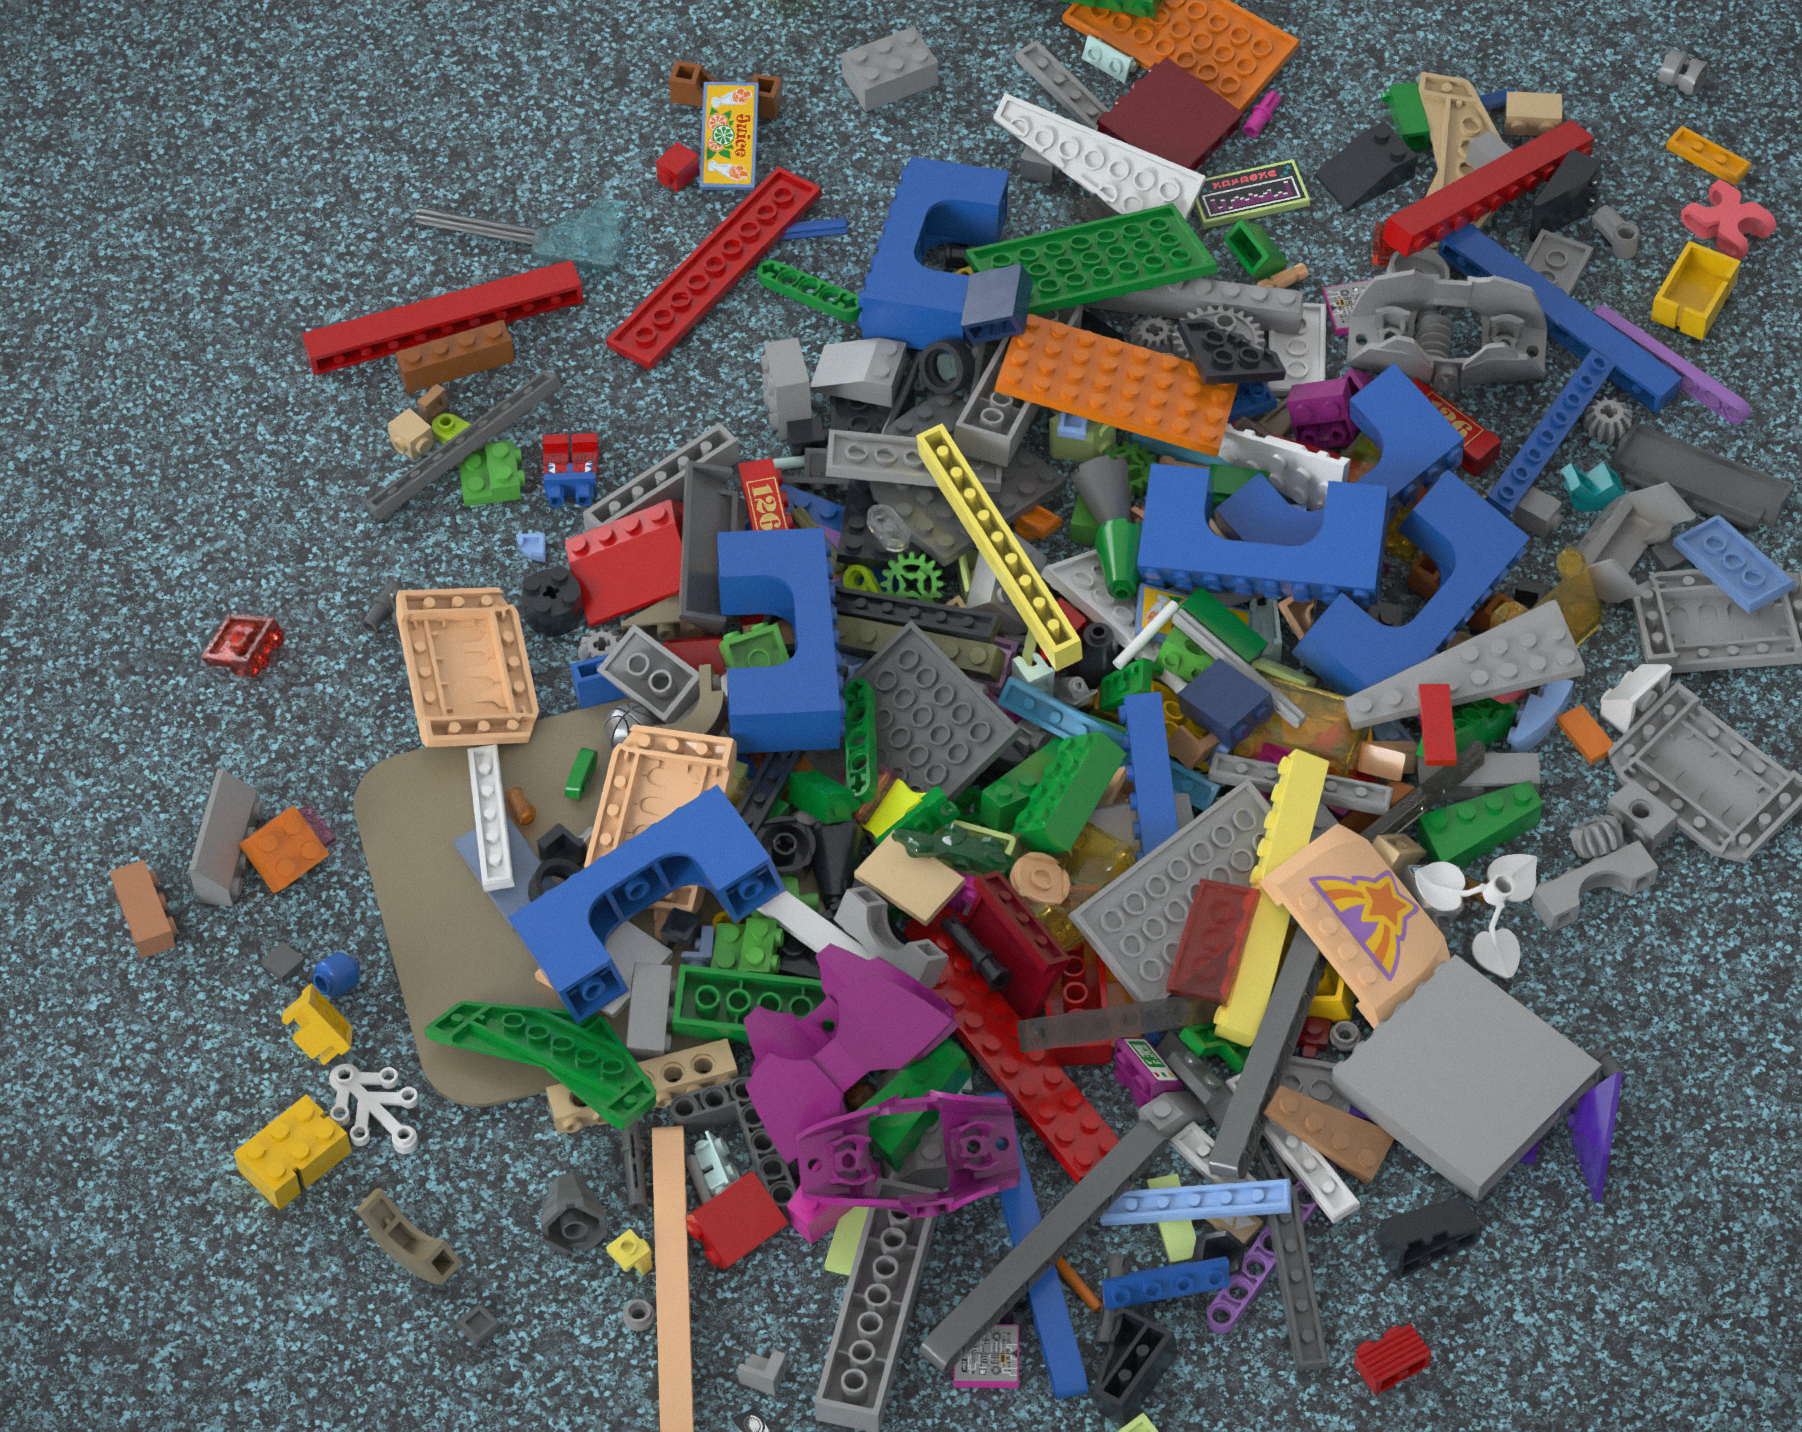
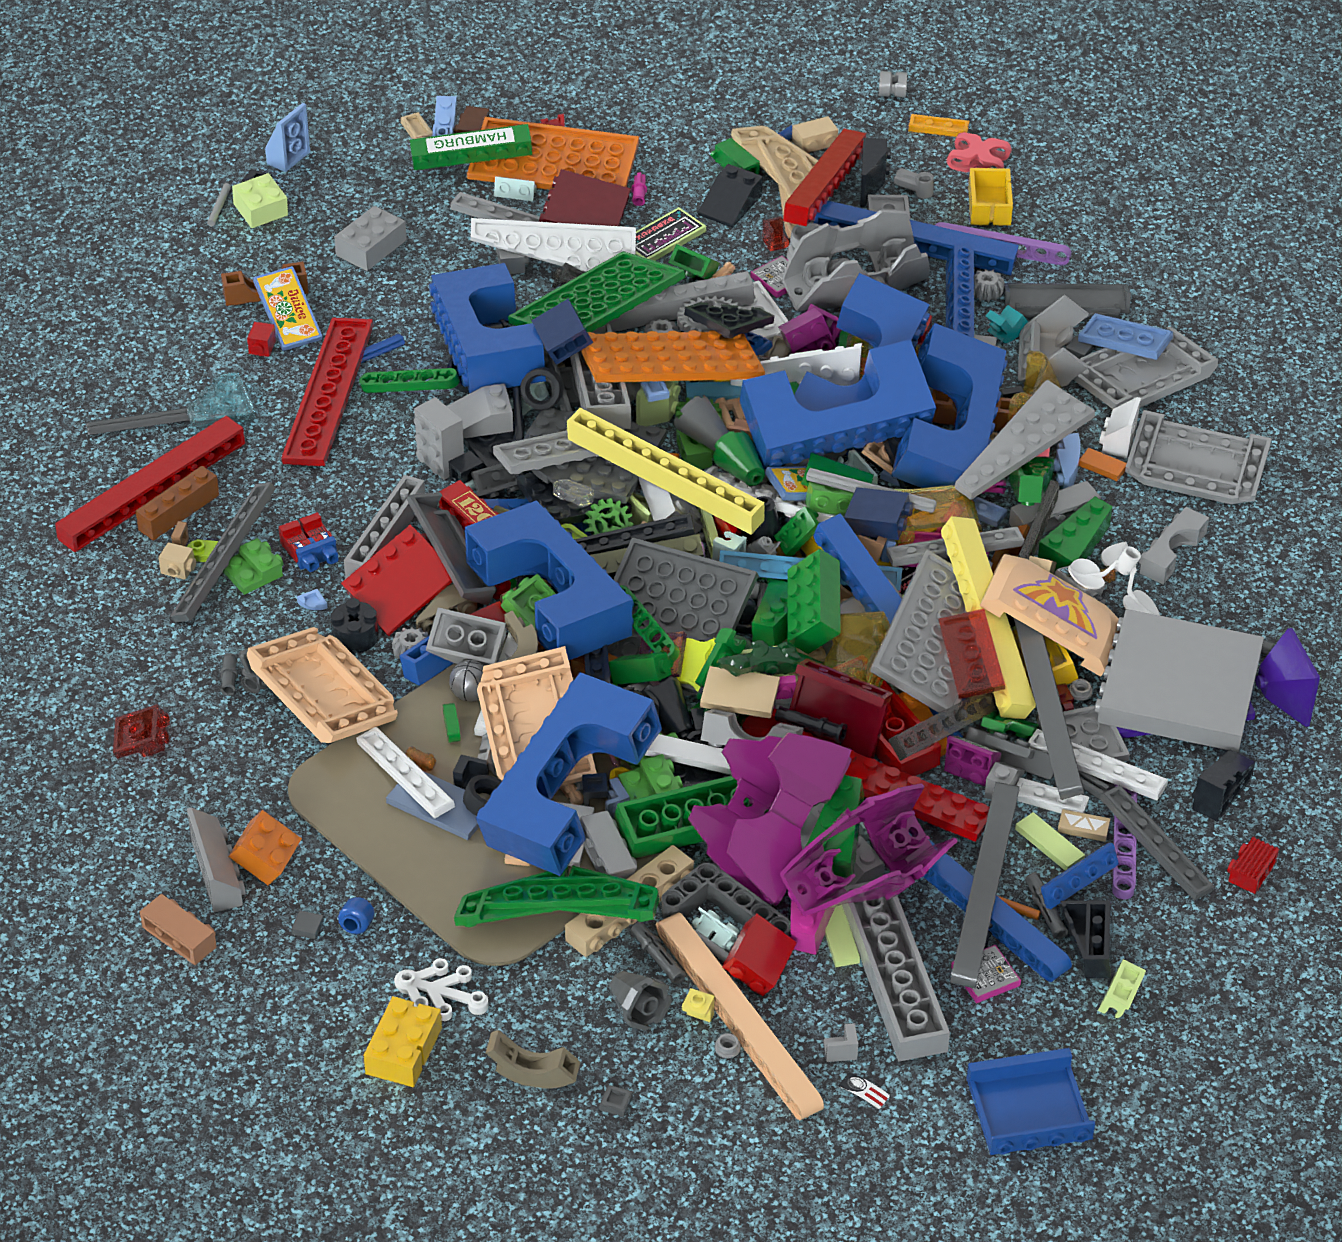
camera: 30 degrees left, 10 degrees down
(322, 1026) = (370, 948): yellow panel -> none
(1040, 879) = (826, 656): light nougat tile -> none
(1146, 634) = (793, 494): white bar -> none
(1200, 1202) = (1066, 819): light blue tile -> none
(1220, 1245) = (1095, 840): black panel -> none
(1332, 1132) = (1123, 745): medium nougat wing -> none
(1387, 758) = (995, 517): light nougat slope -> none
(1437, 725) = (1029, 472): red tile -> none
(1486, 149) = (806, 159): light grey brick -> none
(1597, 836) = (1157, 515): light grey gear -> none
(1657, 821) = (1172, 494): light grey brick -> none

